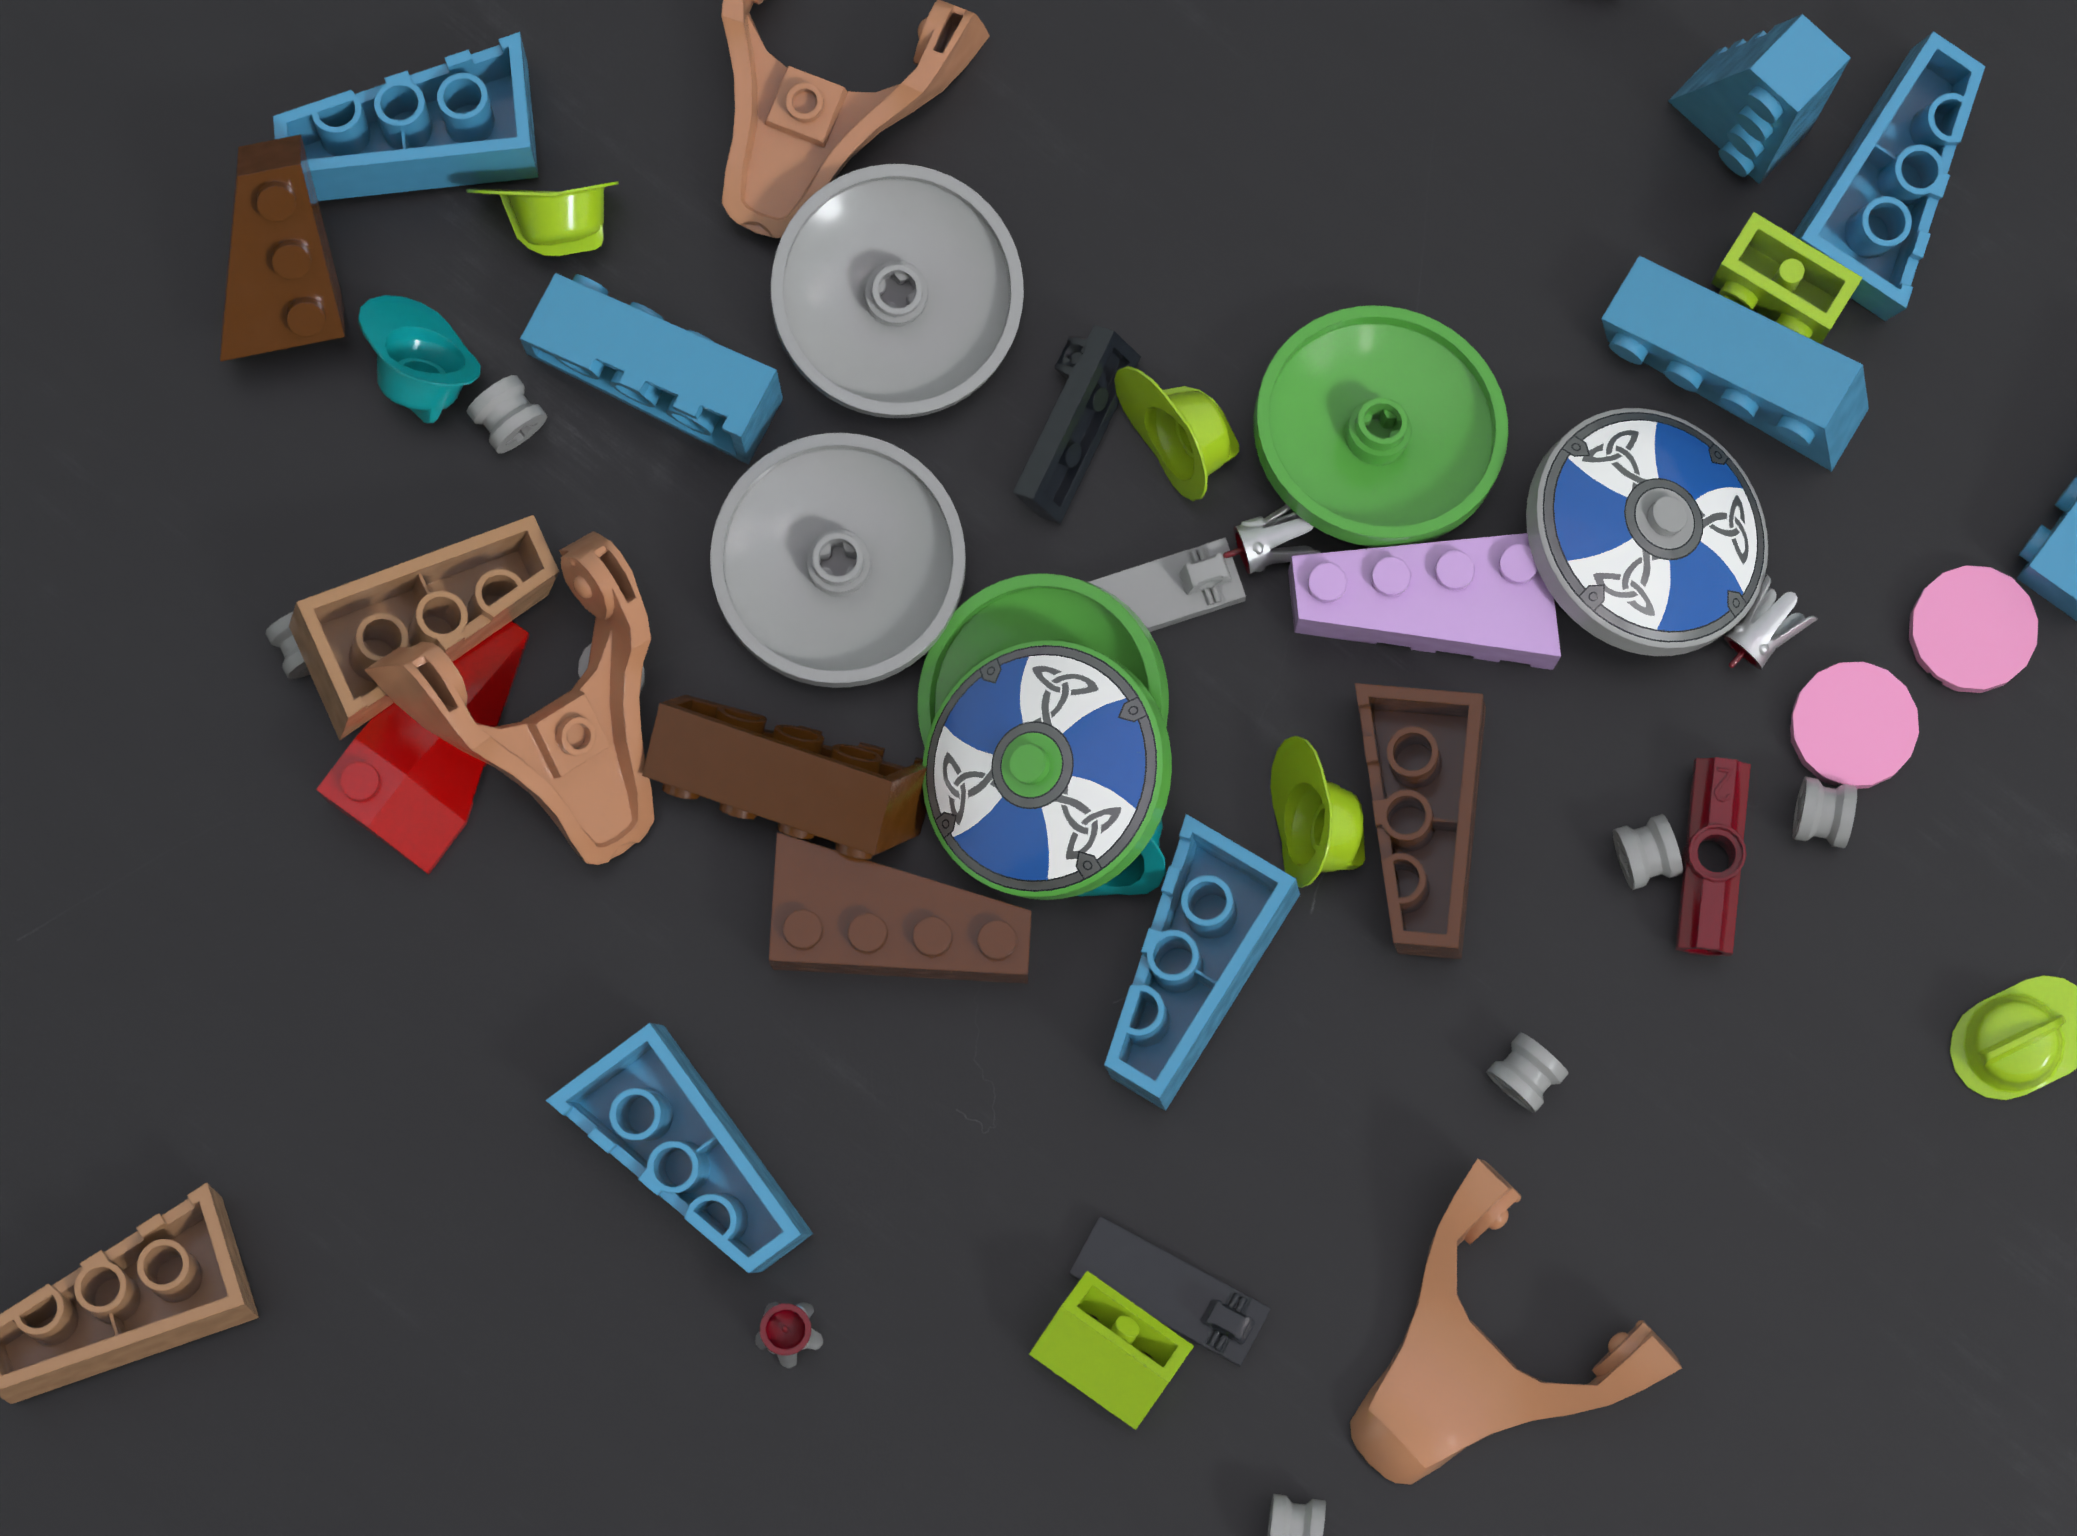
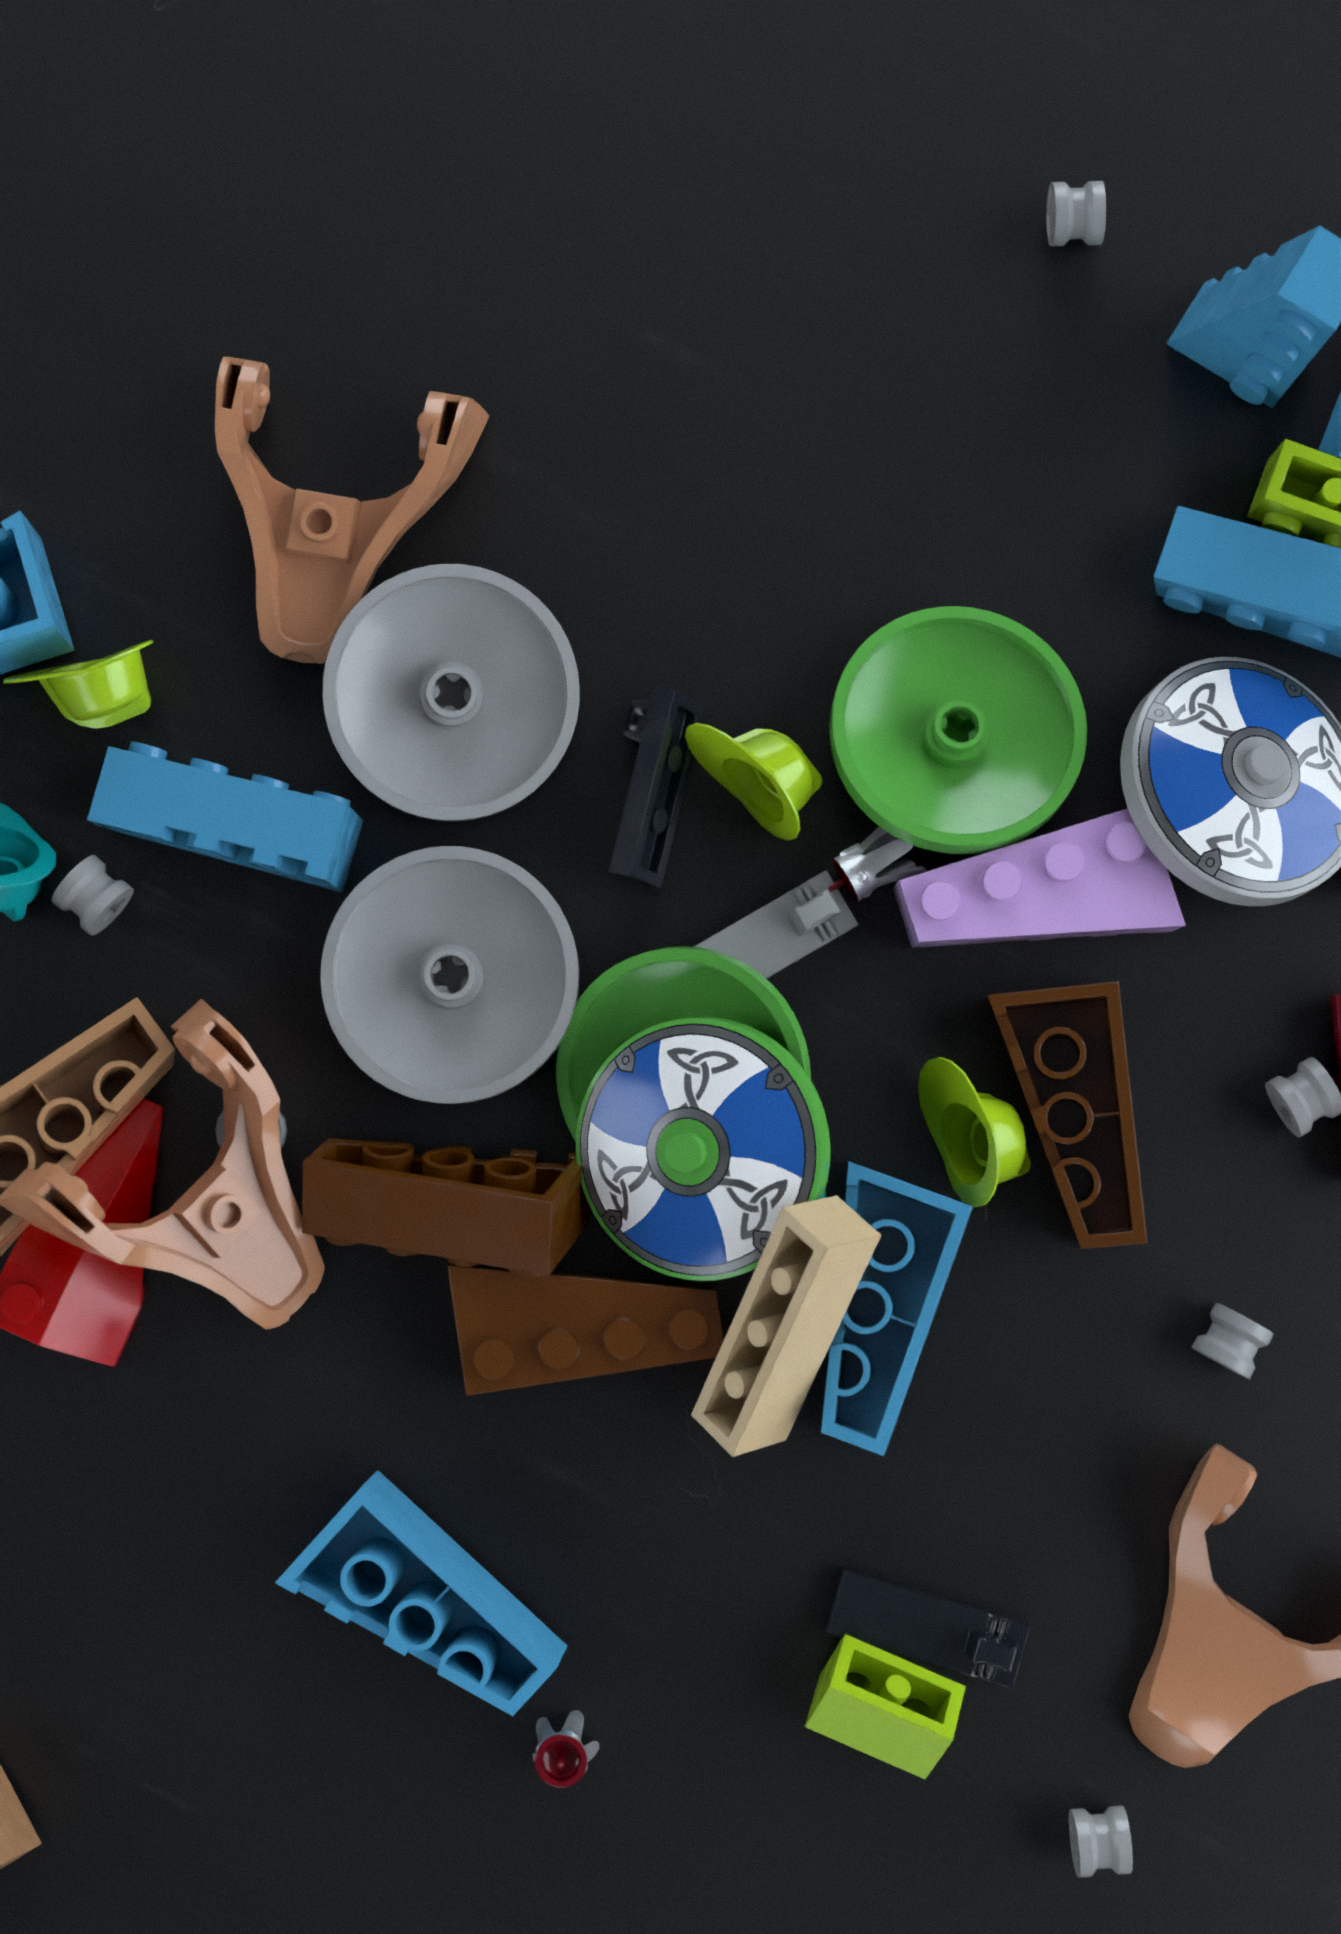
camera: 10 degrees left, 5 degrees up
(1090, 952) = (785, 1324): none -> tan brick

